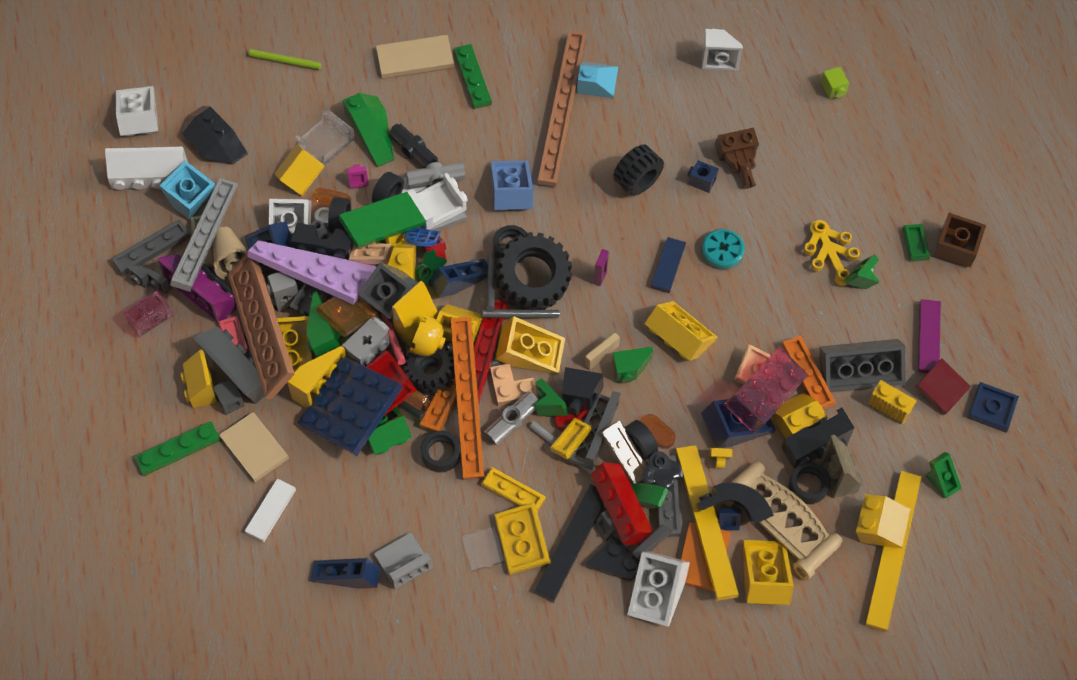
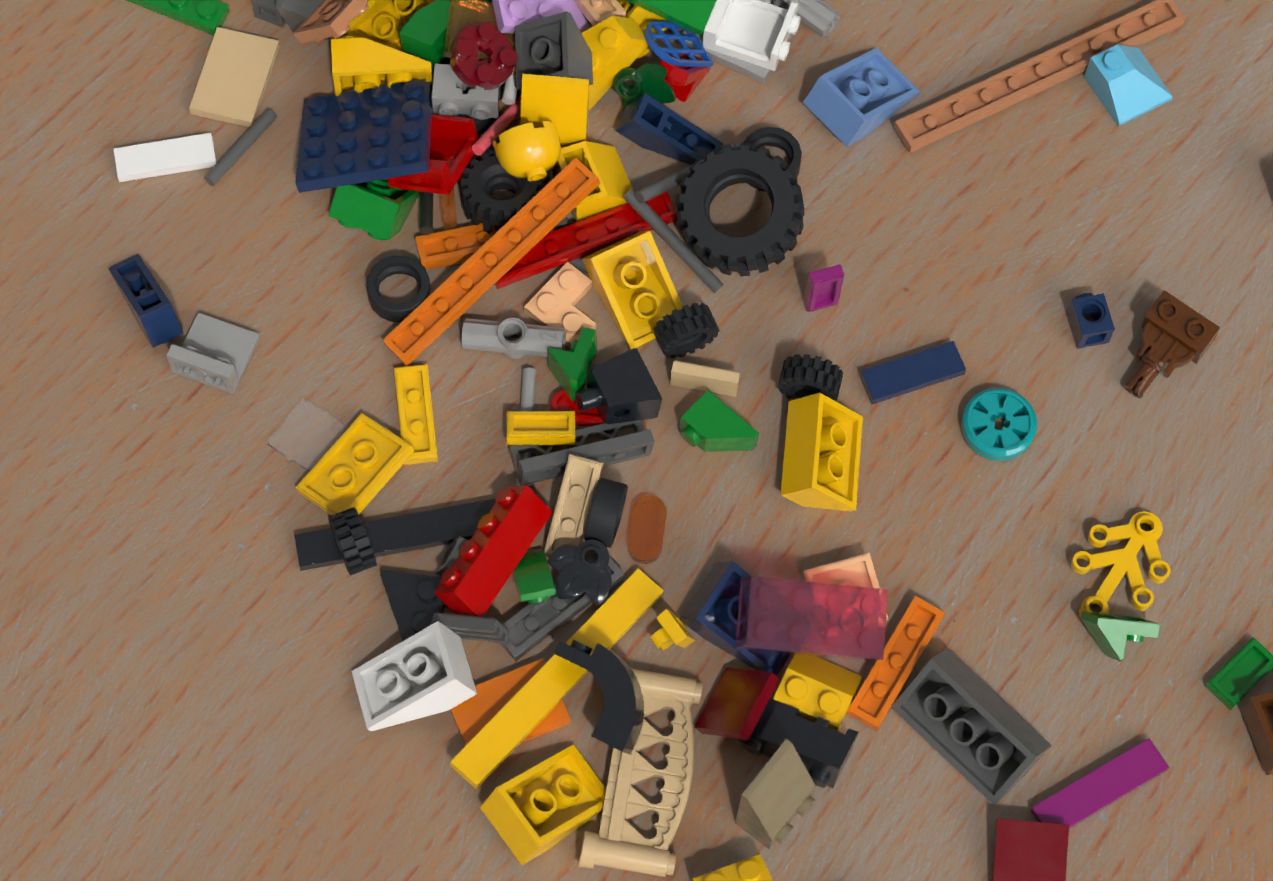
camera: 50 degrees right, 5 degrees up
(296, 471) = (240, 147): none -> dark grey bar
(354, 312) = (491, 42): none -> dark red plate
(567, 562) = (352, 541): none -> black tyre
(573, 340) = (686, 330): none -> black tyre
(638, 170) = (1015, 229): black tyre -> none
(642, 306) = (809, 376): none -> black tyre
(729, 518) = (585, 703): dark blue tile -> none
(780, 452) = (737, 703): none -> dark red tile
(815, 469) = (710, 751): black tyre -> none
(892, 402) = (943, 802): yellow brick -> none

